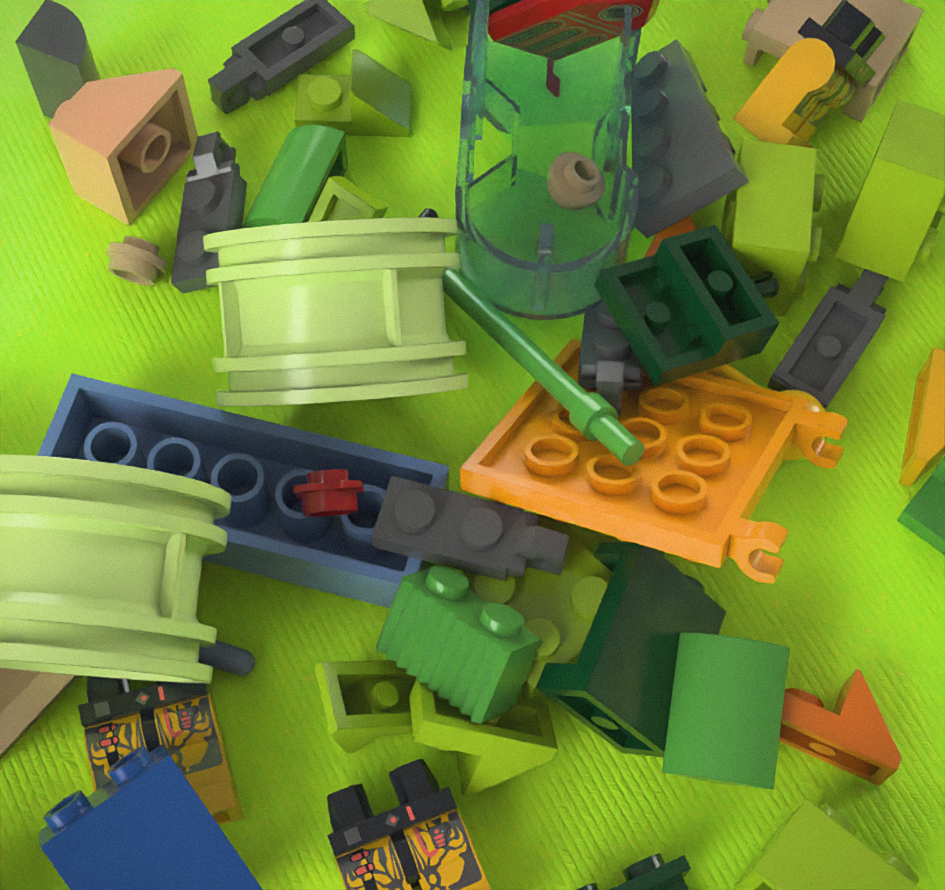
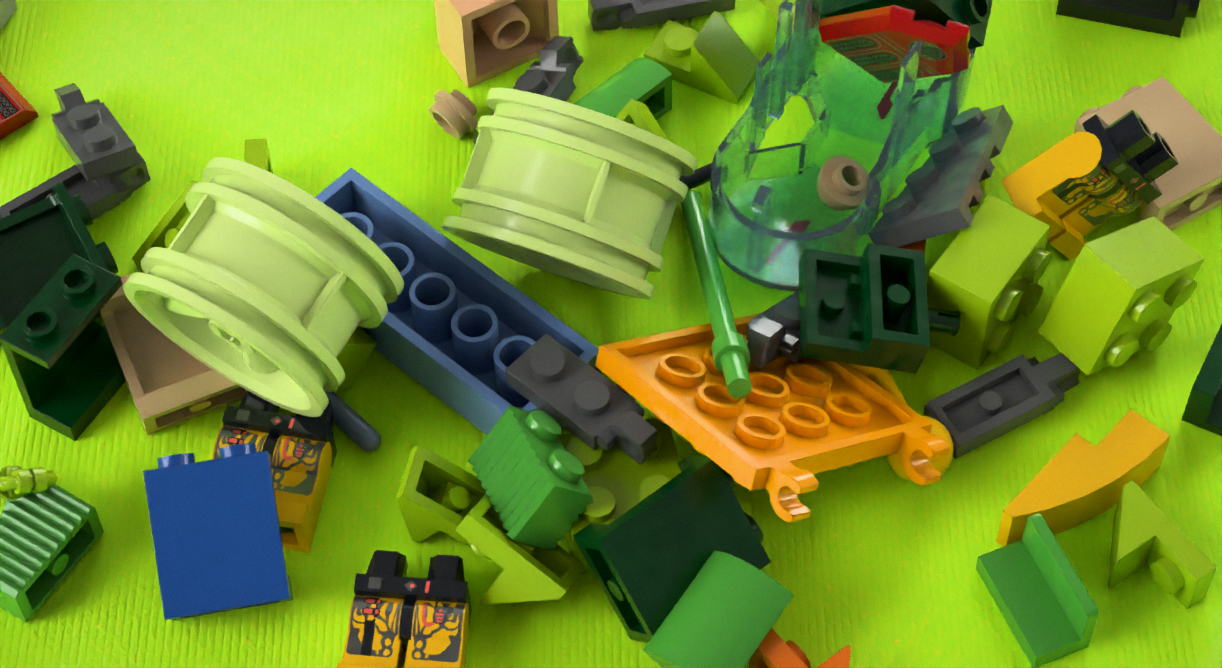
camera: 30 degrees right, 10 degrees down
(329, 493) = (489, 325): red plate -> none

